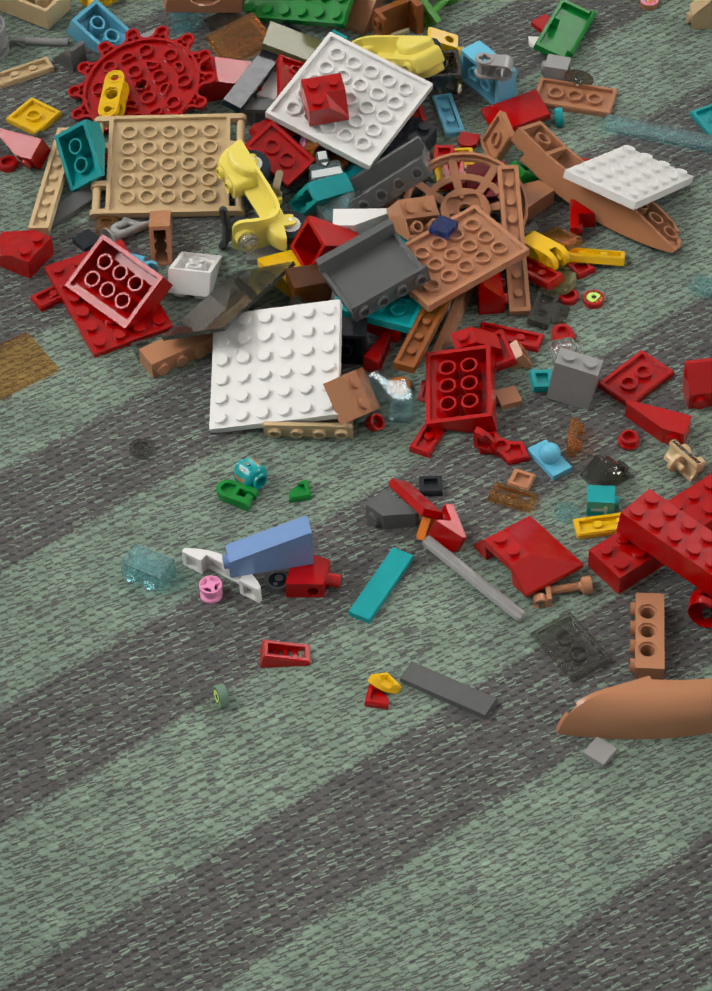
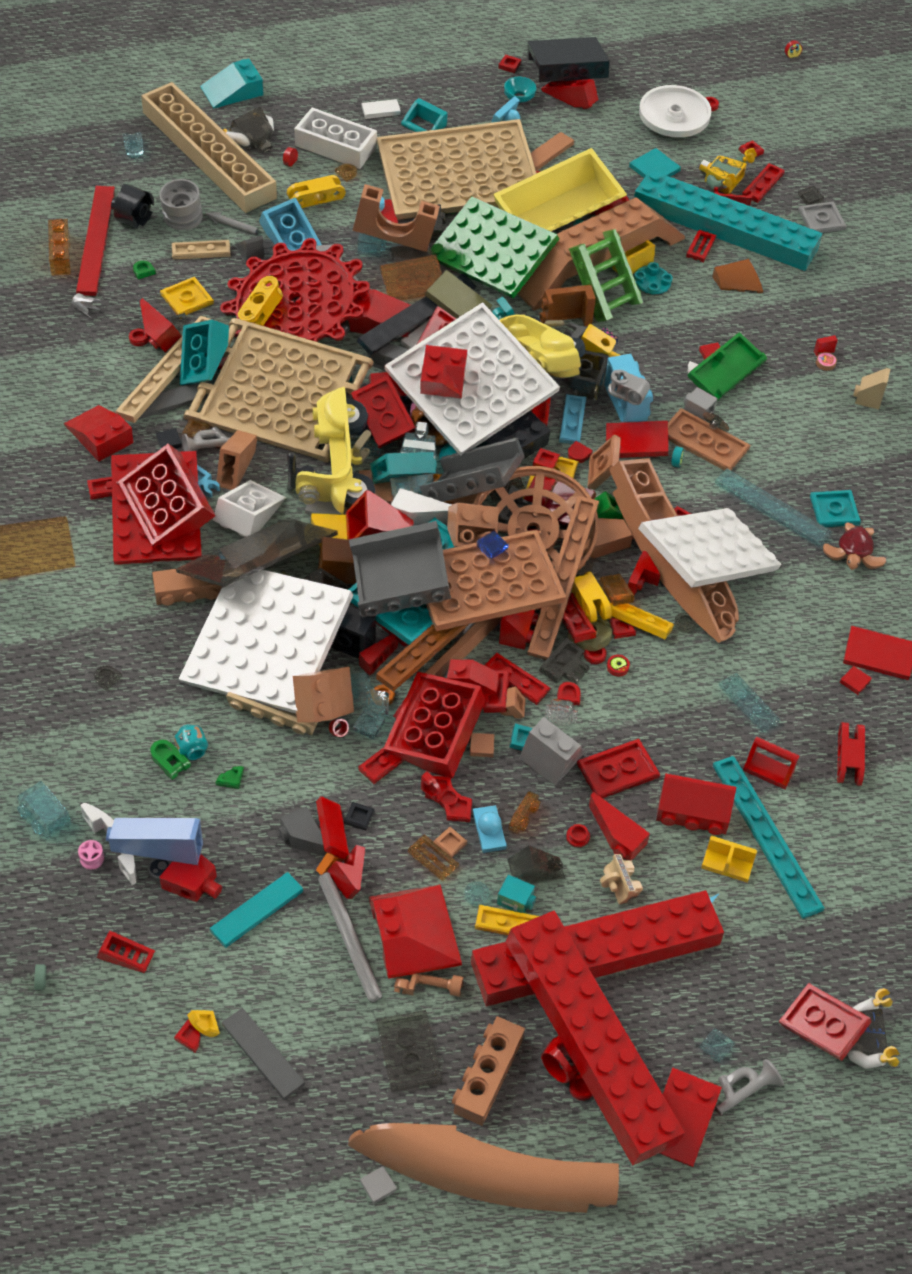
camera: 15 degrees right, 5 degrees up
(634, 248) = (684, 623): none -> clear smoke tile

